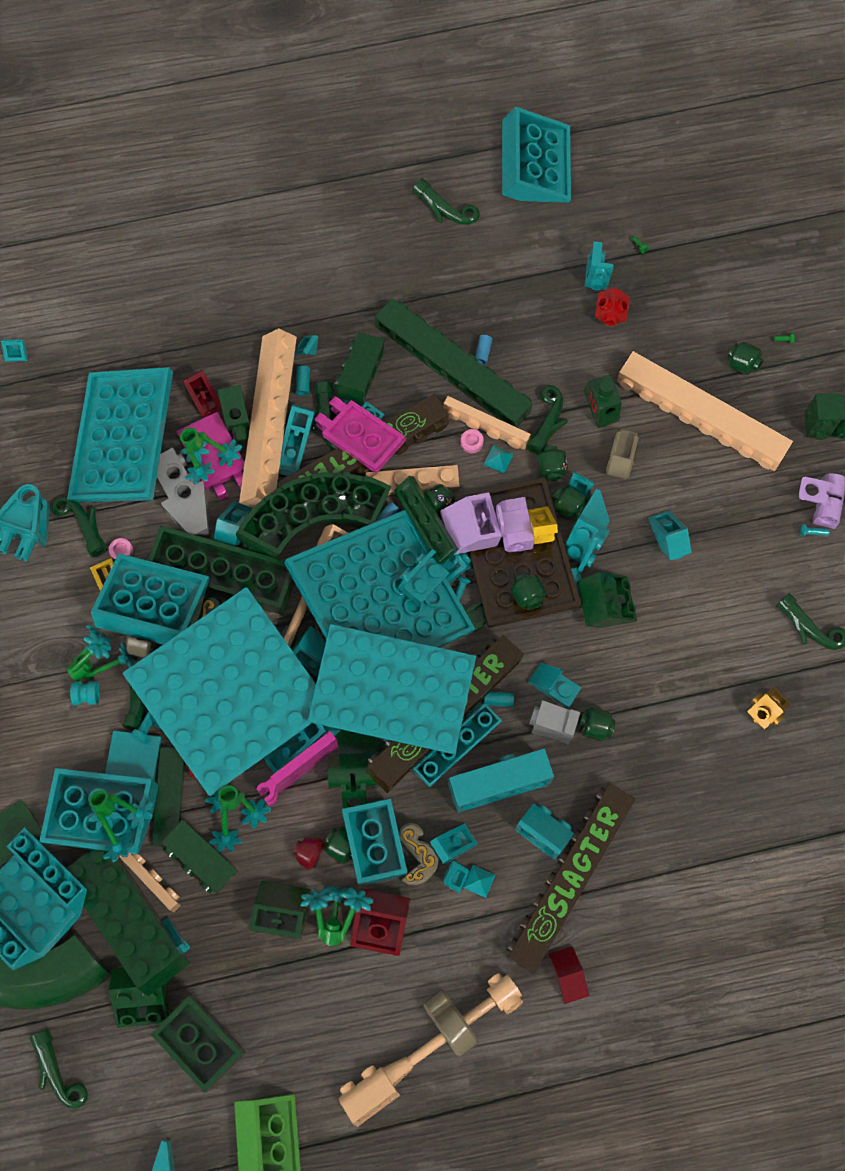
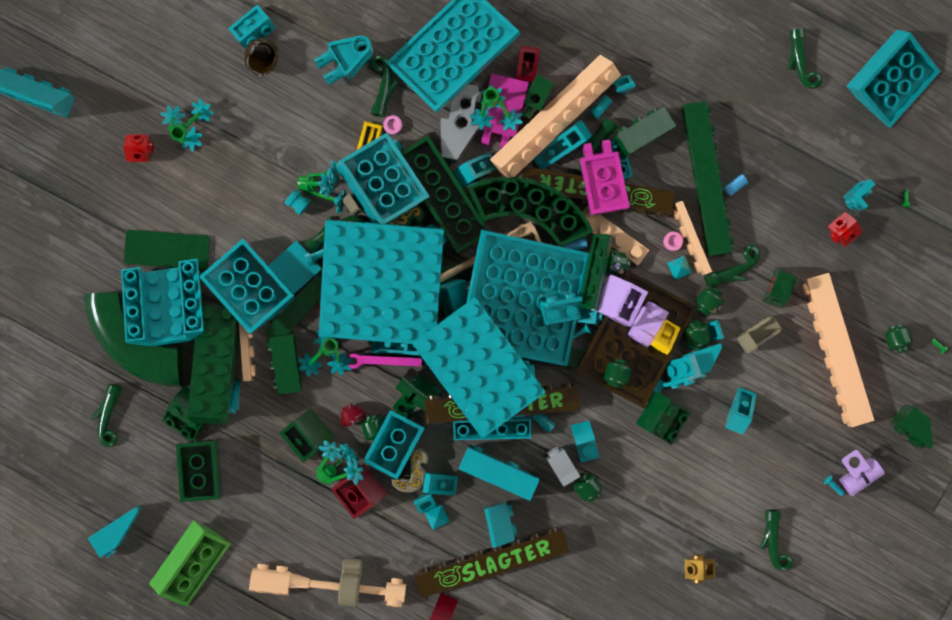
camera: 40 degrees right, 15 degrees up
(104, 807) = (250, 294): plant -> none

